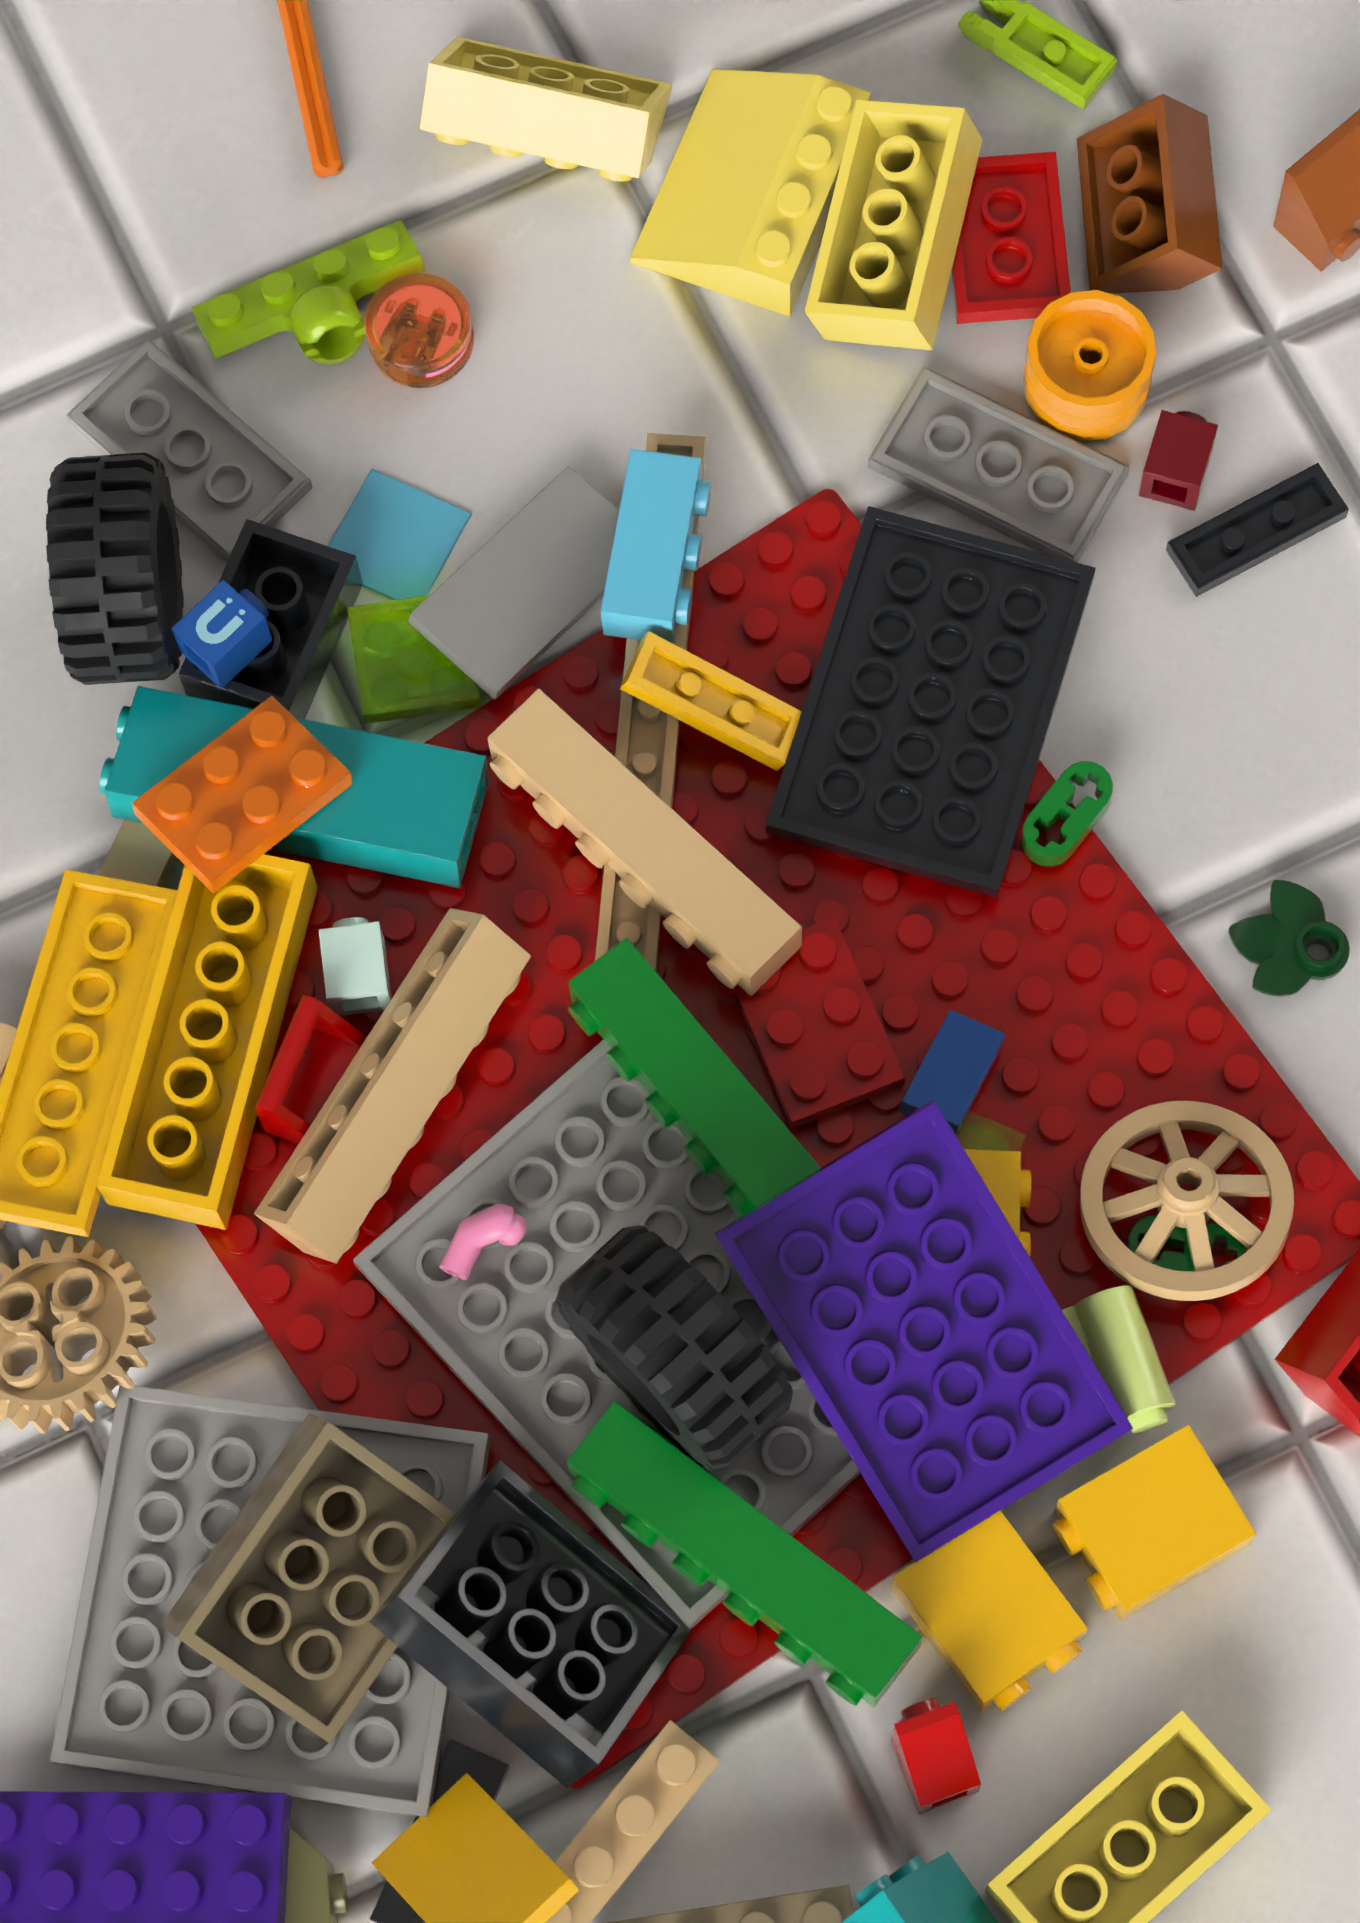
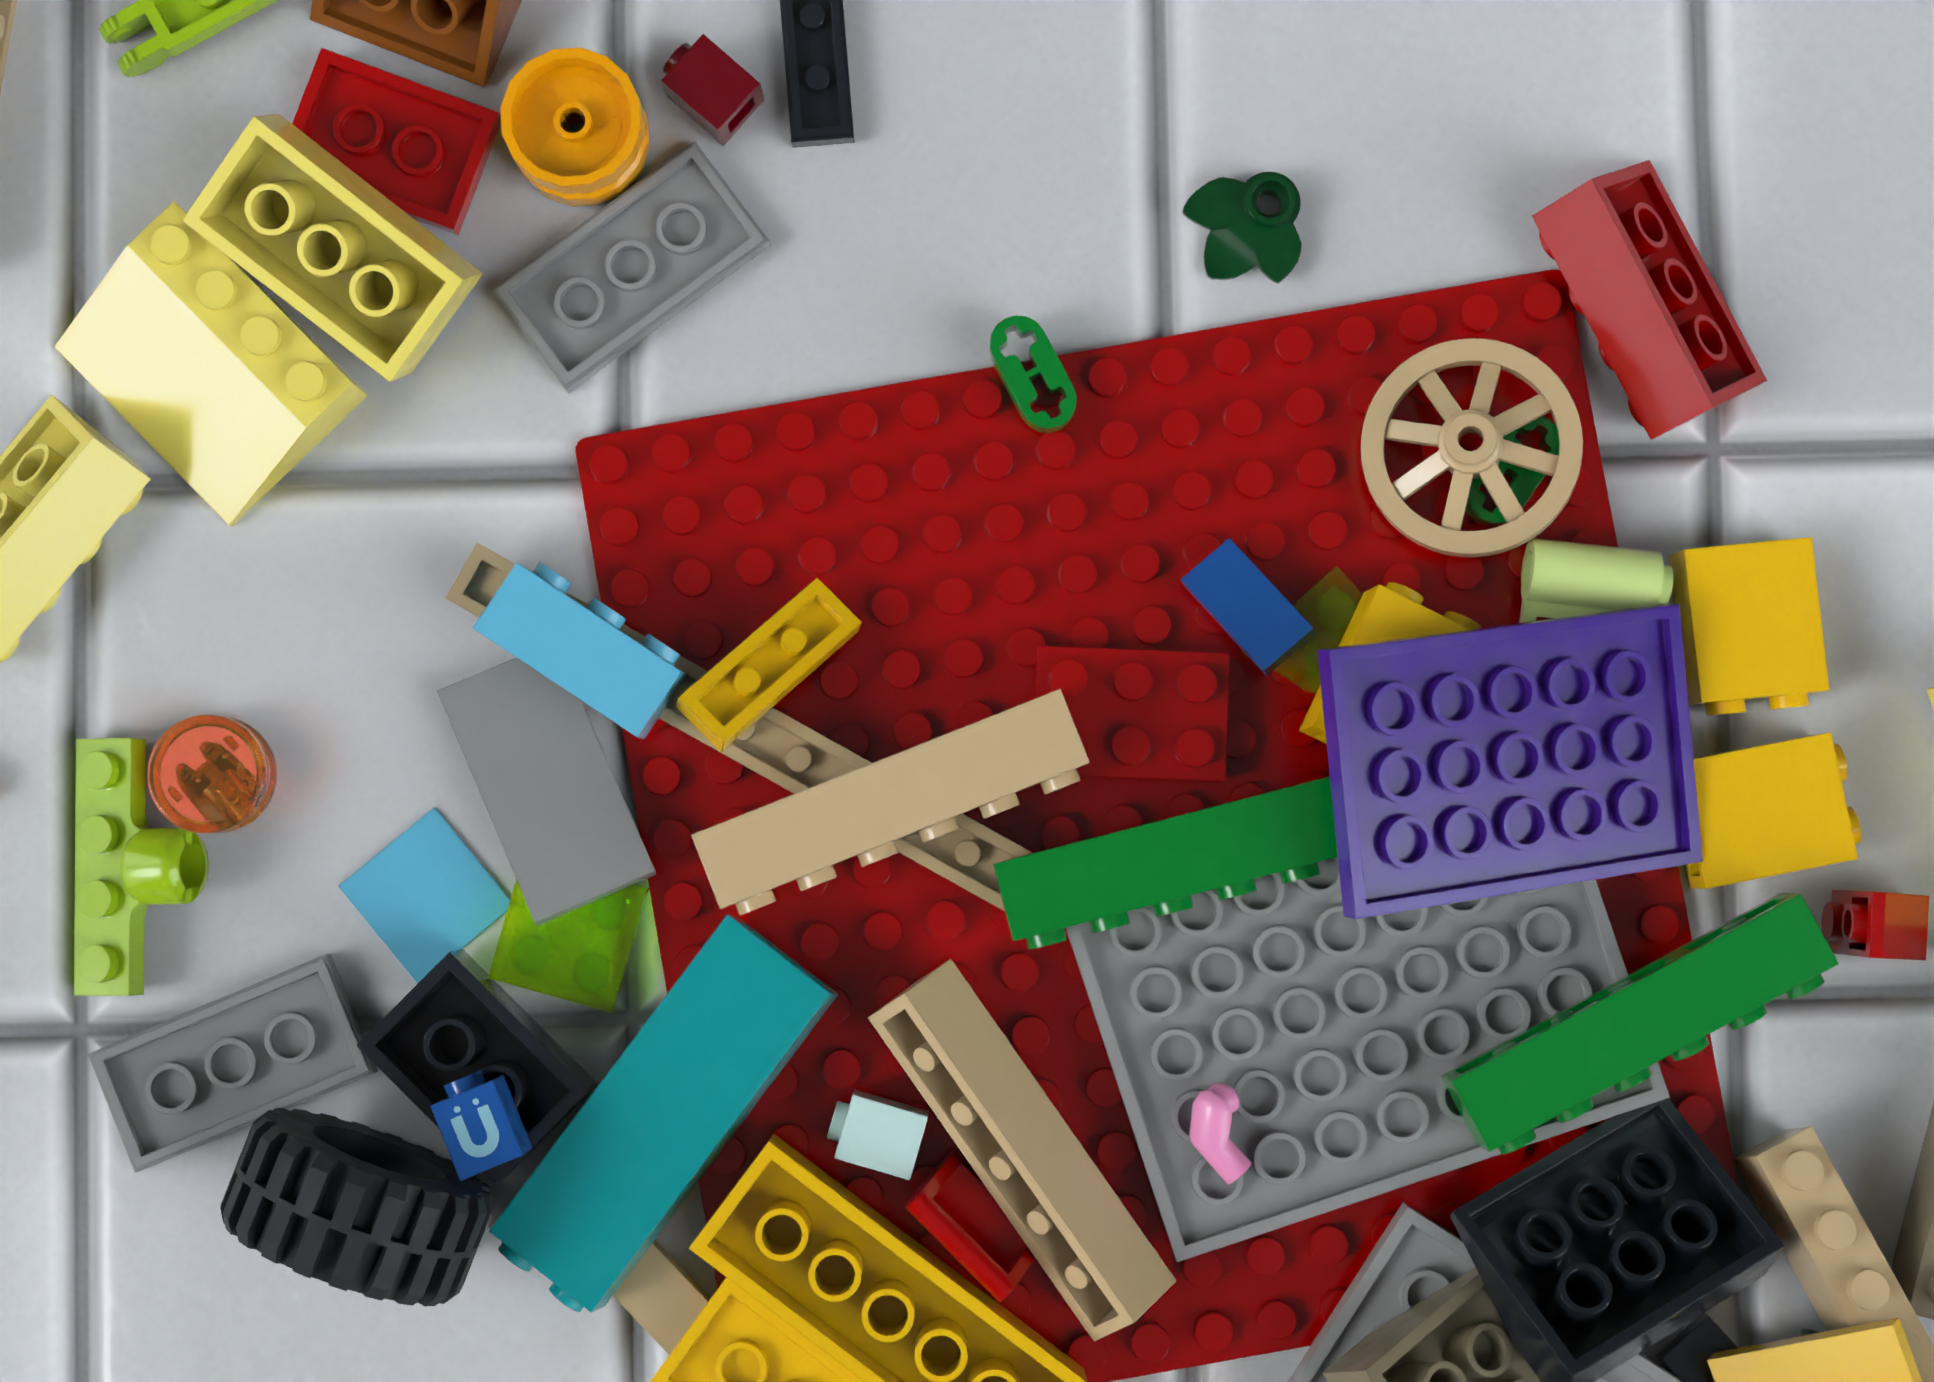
camera: 75 degrees left, 15 degrees up
(242, 794) = (664, 1178): orange plate -> none
(674, 1347) = (1450, 1010): black tyre -> none
(931, 701) = (858, 448): black plate -> none

